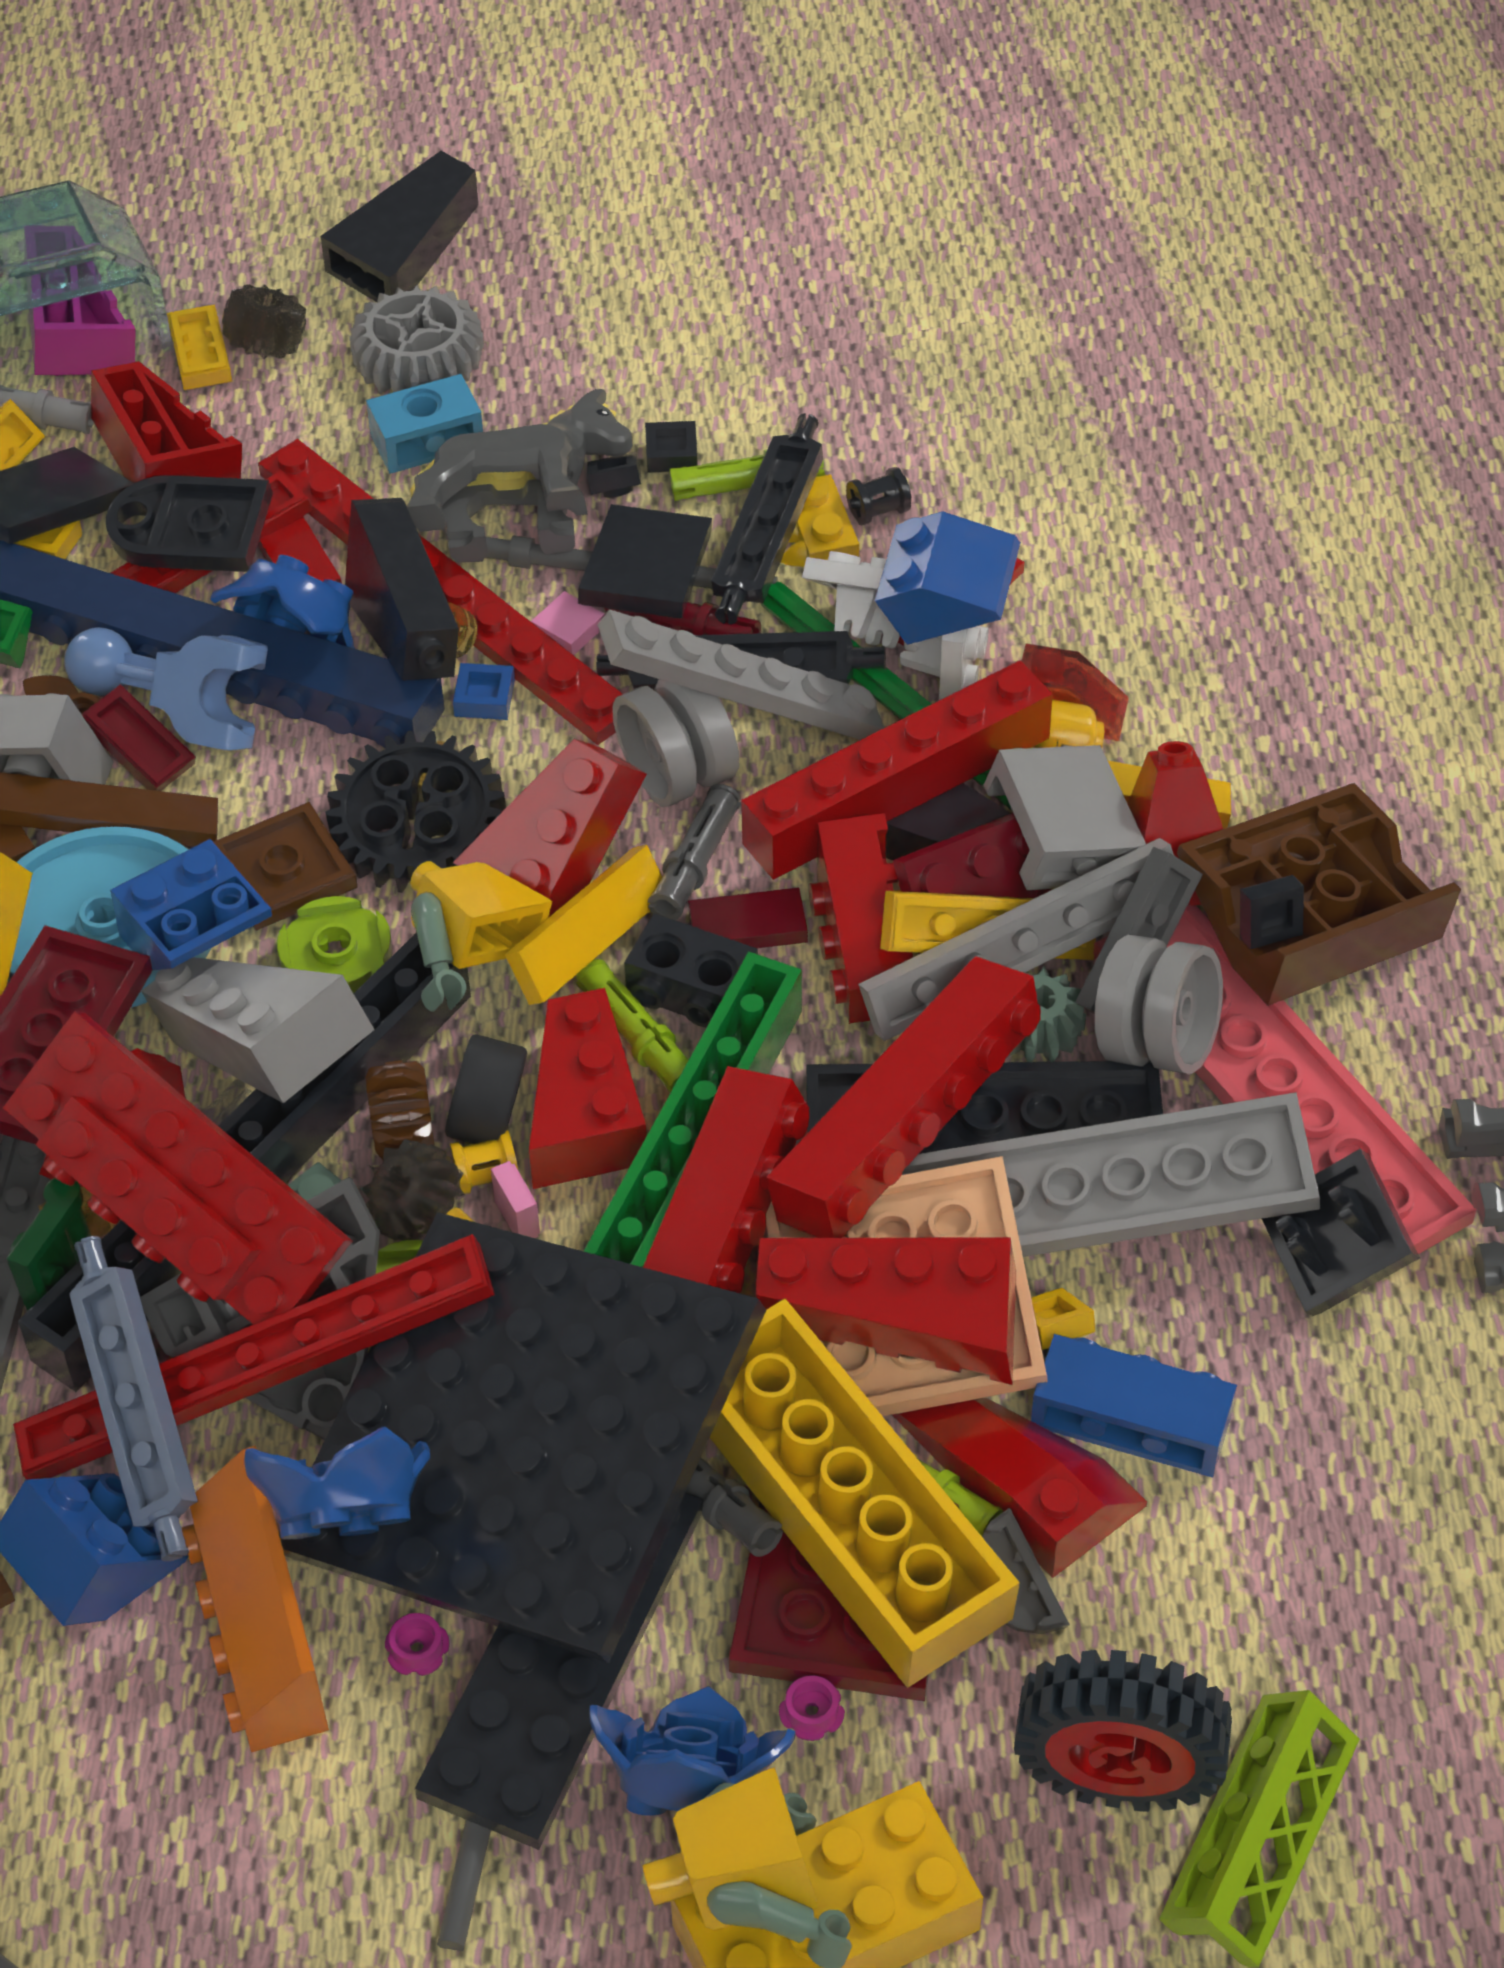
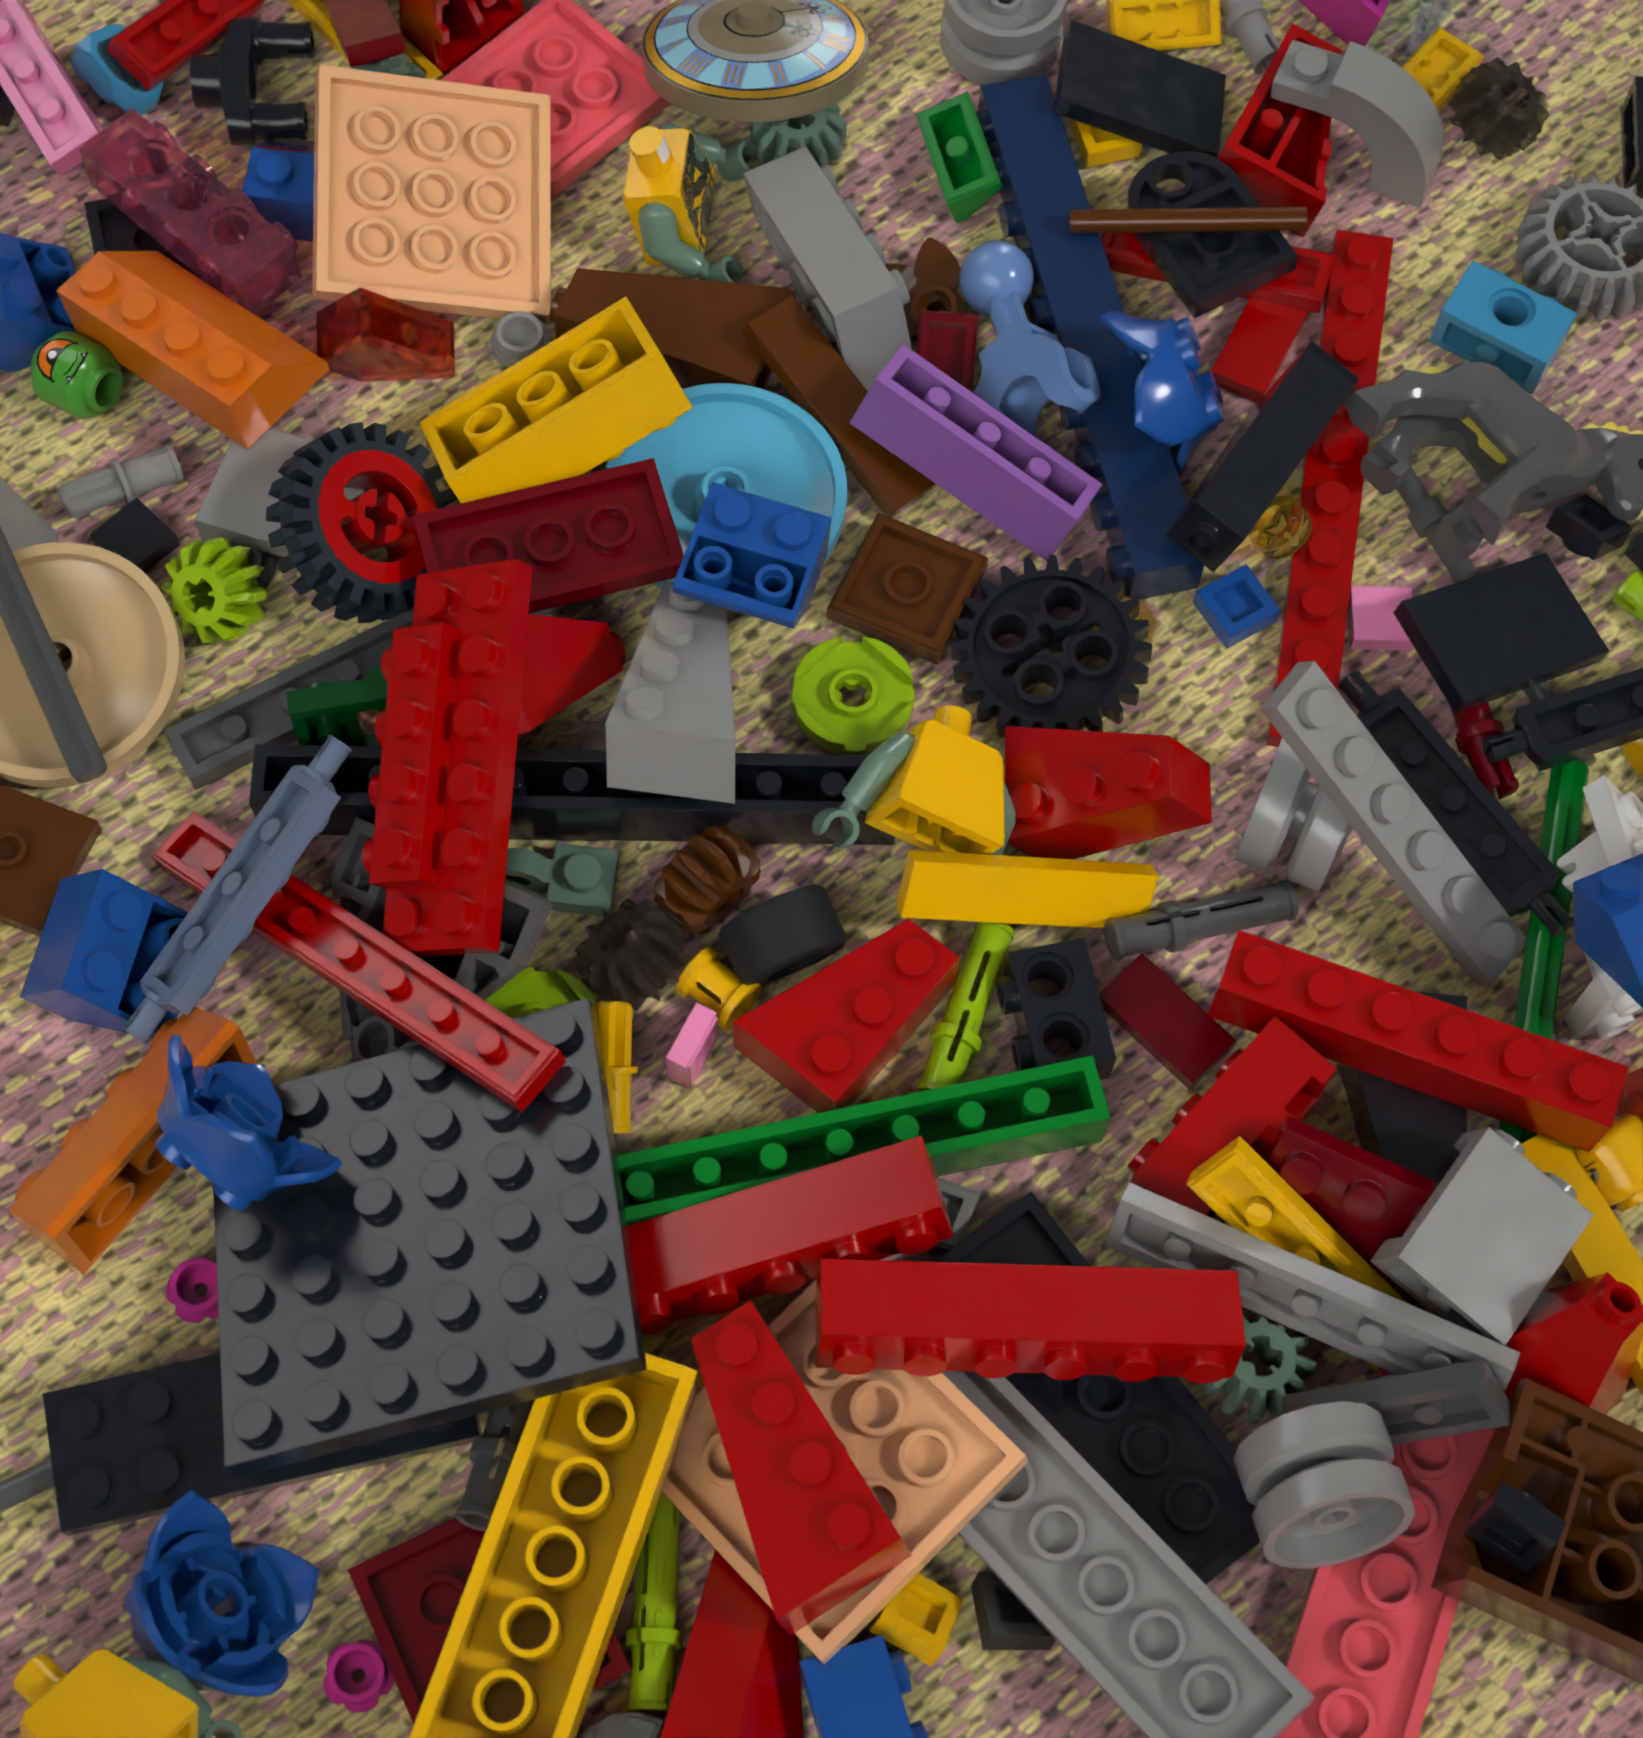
camera: 50 degrees right, 15 degrees up
(177, 520) = (1188, 220): none -> reddish brown bar
(201, 362) = (1377, 103): none -> light grey arch
(229, 748) = (975, 452): none -> medium lavender brick
(1095, 1265) = (1004, 1620): none -> pearl dark grey plate

